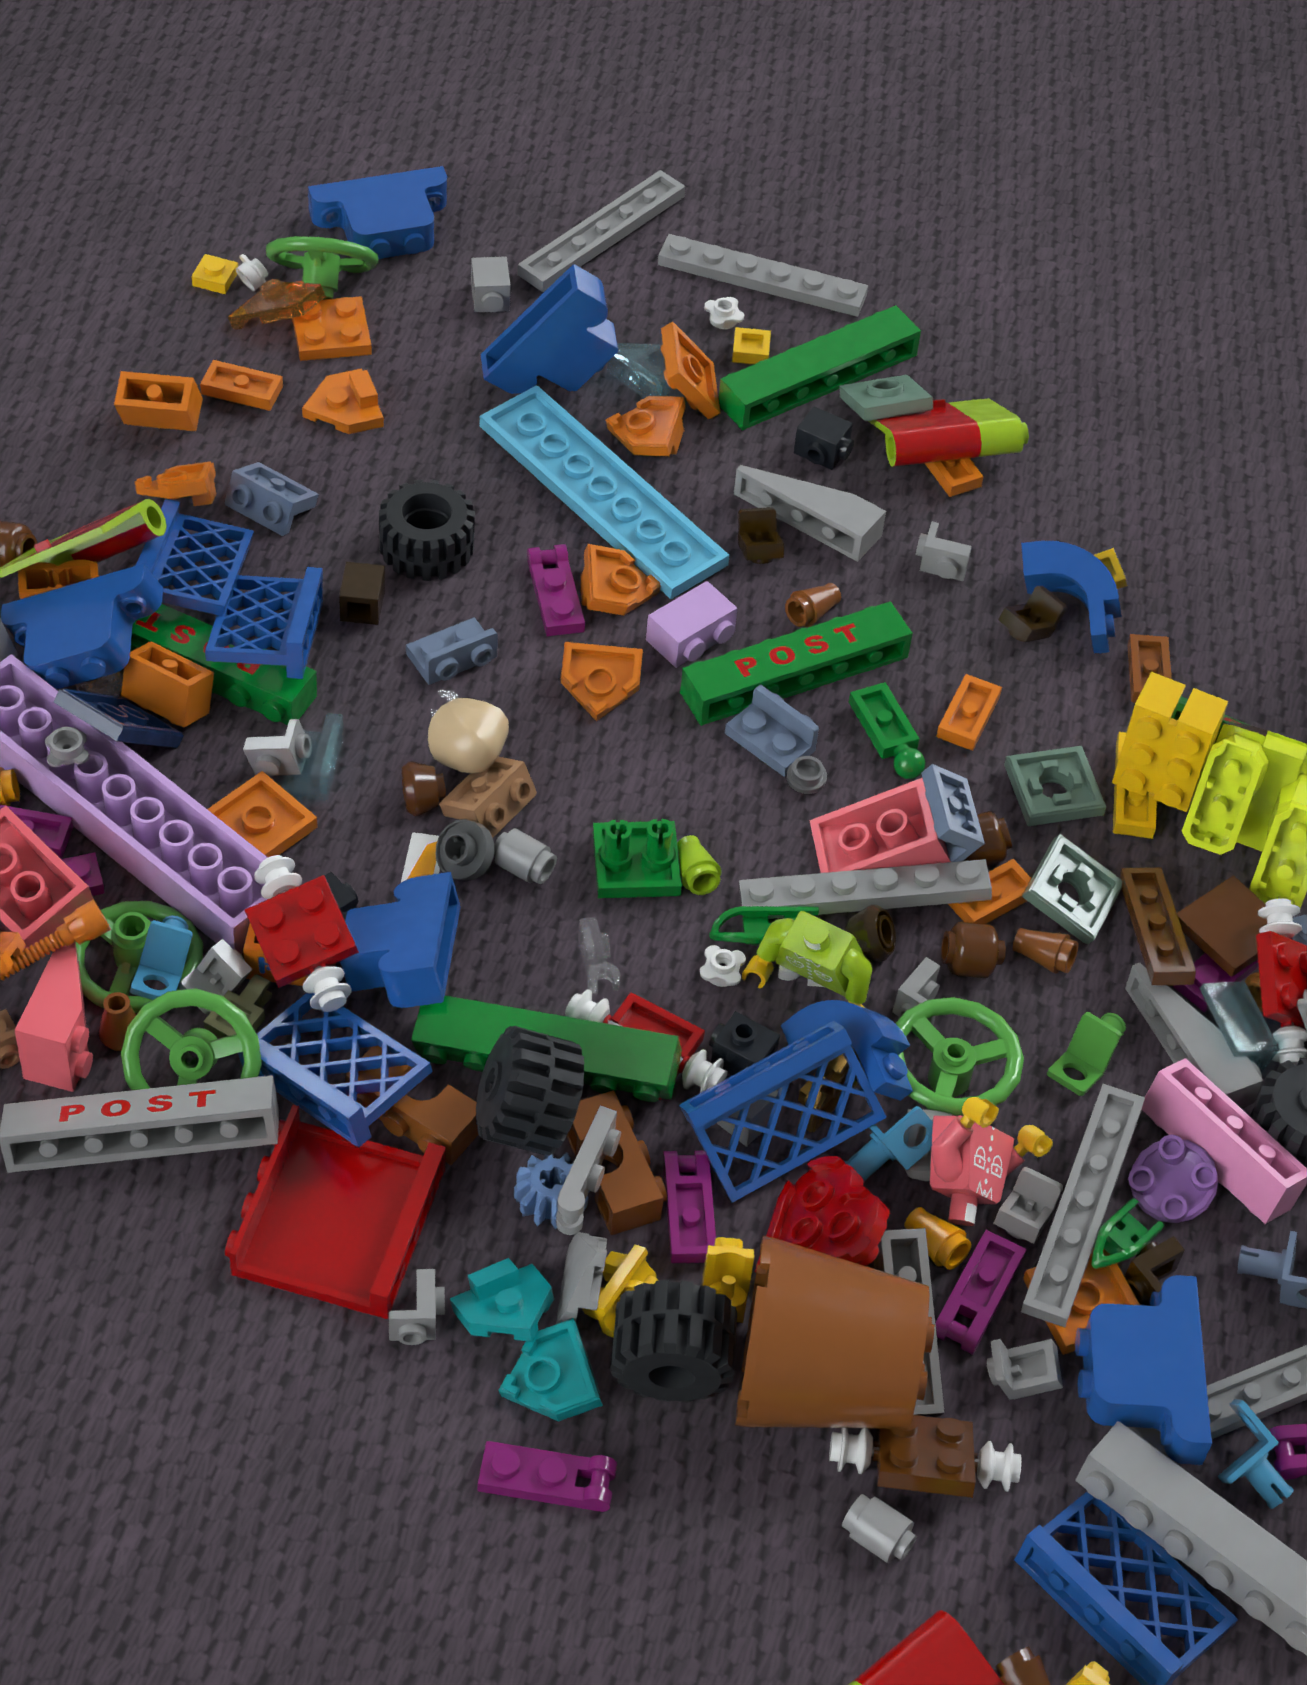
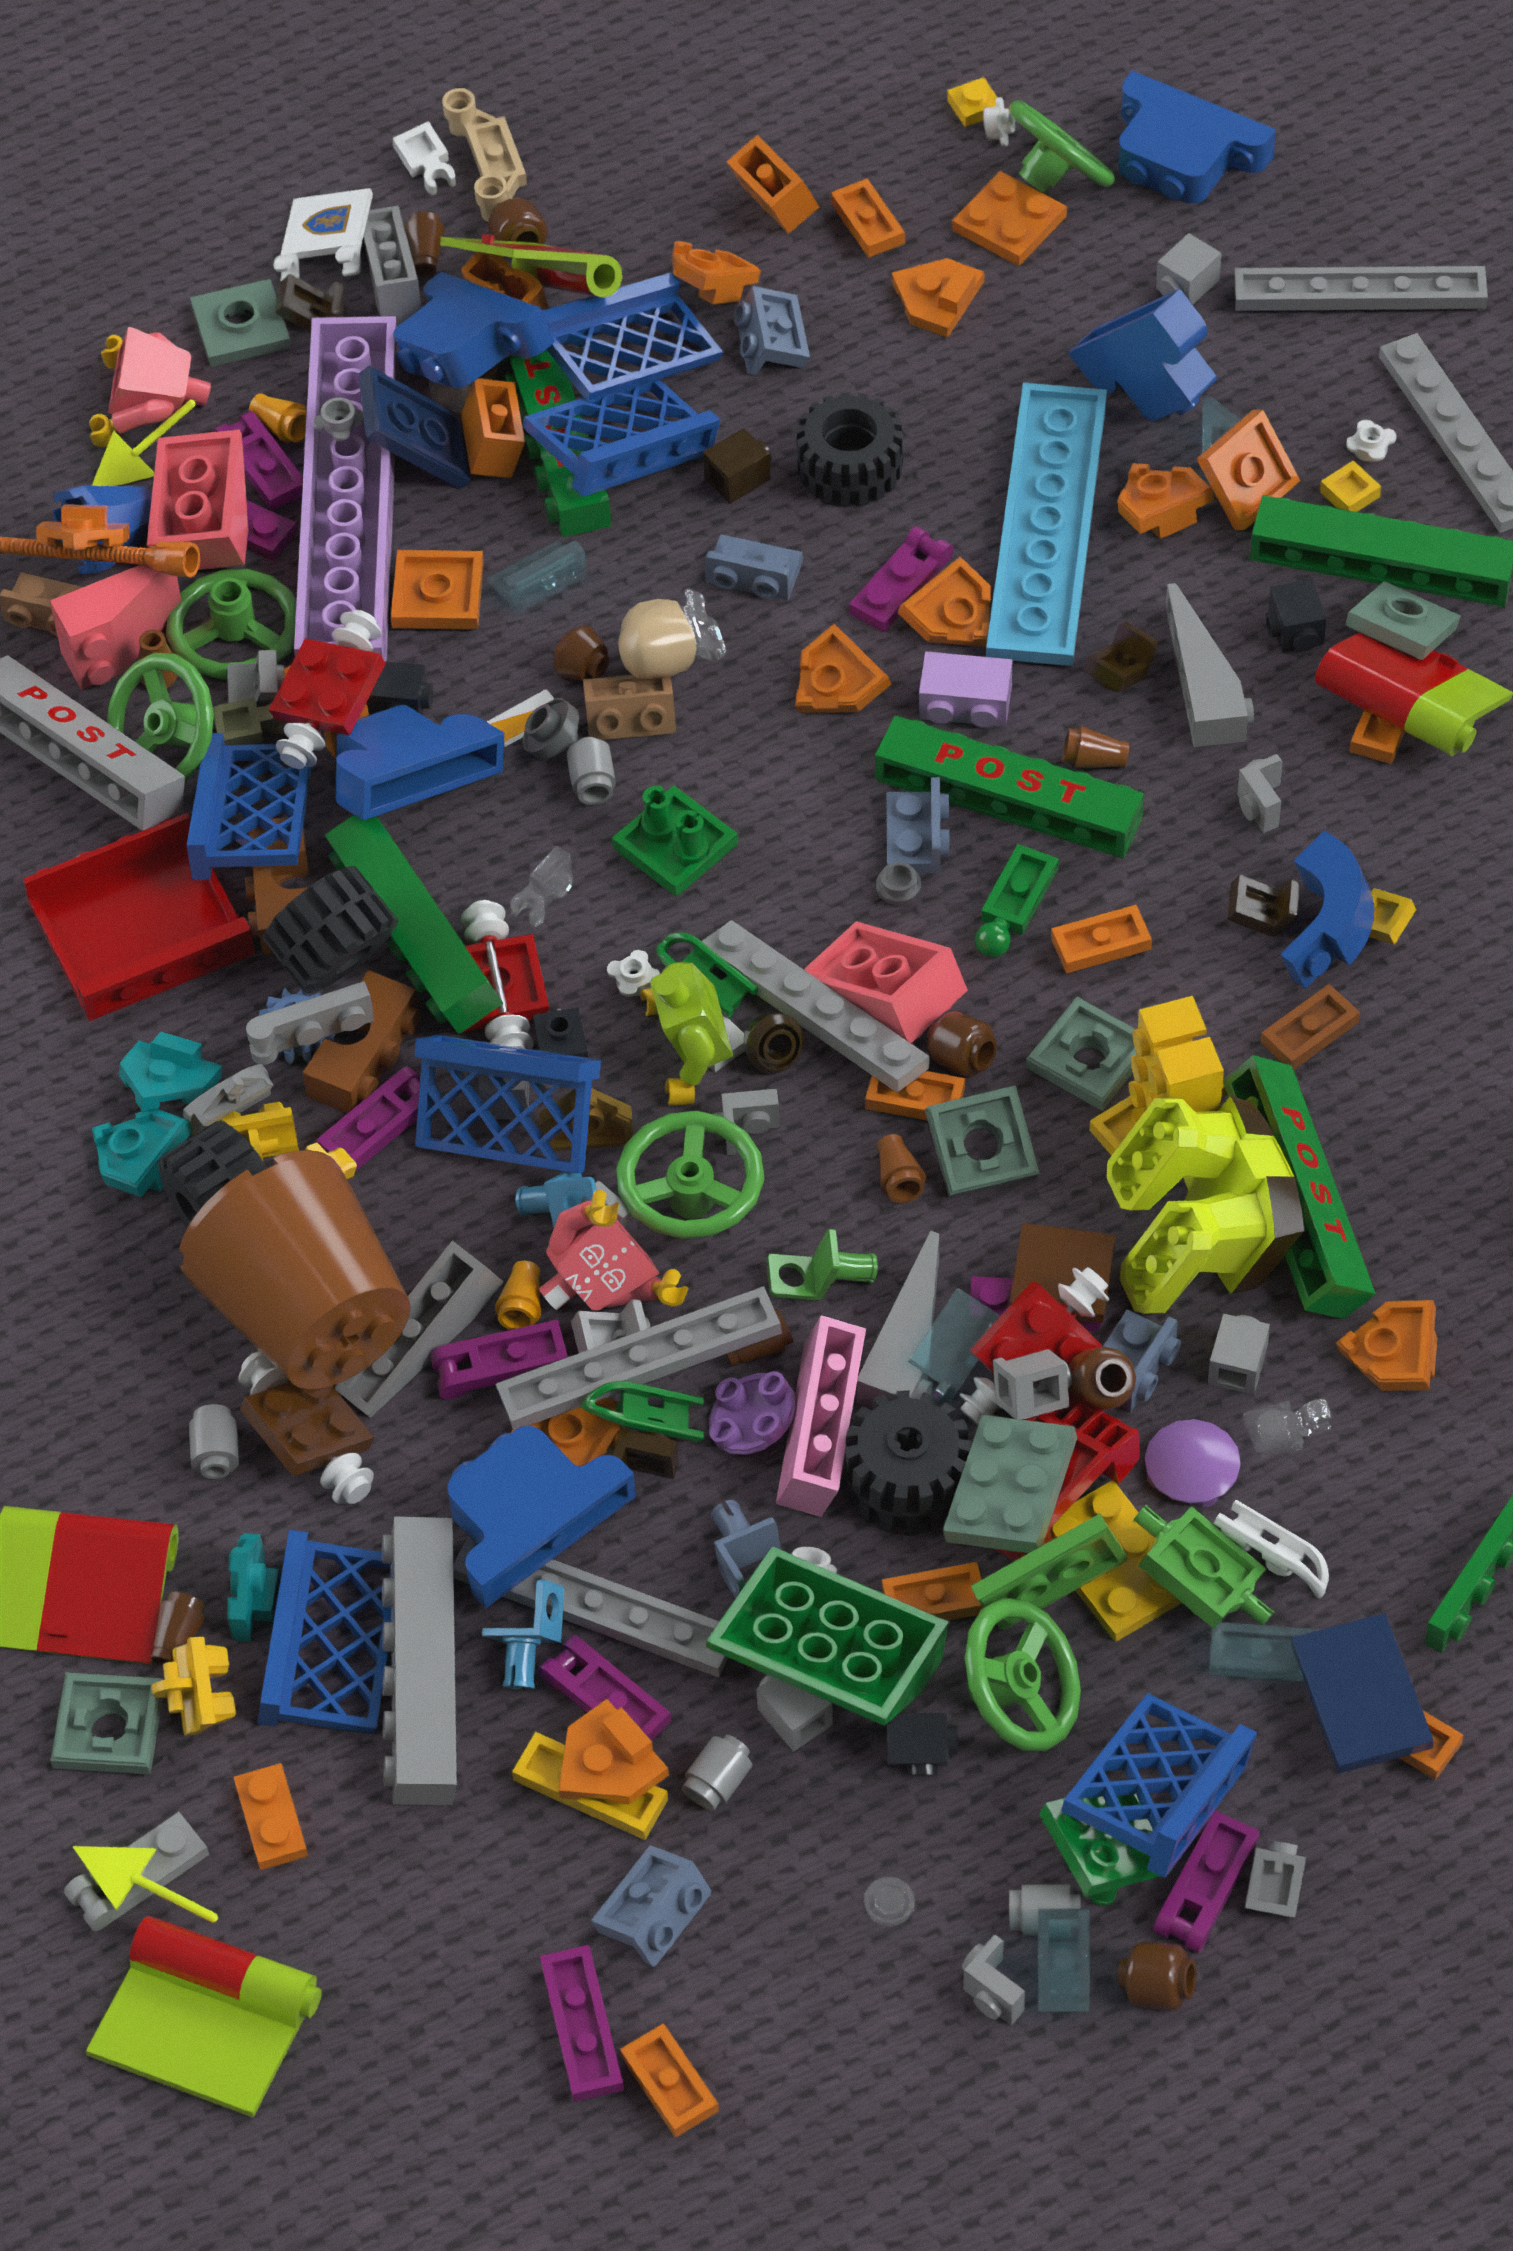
camera: 55 degrees right, 5 degrees up
(163, 956) = (231, 635): dark azure bracket -> none
(278, 301) = (983, 164): clear orange wing -> none
(279, 753) = (509, 548): light grey bracket -> none
(418, 1325) = (109, 1032): light grey bracket -> none
(546, 1476) = (52, 1210): magenta plate -> none
(697, 867) = (711, 885): lime cone -> none
(830, 1213) = (439, 1207): red plate -> none
(872, 1036) = (629, 1107): blue arch -> none
(953, 812) = (933, 990): sand blue bracket -> none
(972, 949) = (832, 1118): reddish brown head -> none
(1025, 1368) = (452, 1433): light grey bracket -> none
(1041, 1602) = (253, 1584): none -> teal plate
(1157, 927) = (998, 1220): reddish brown plate -> none

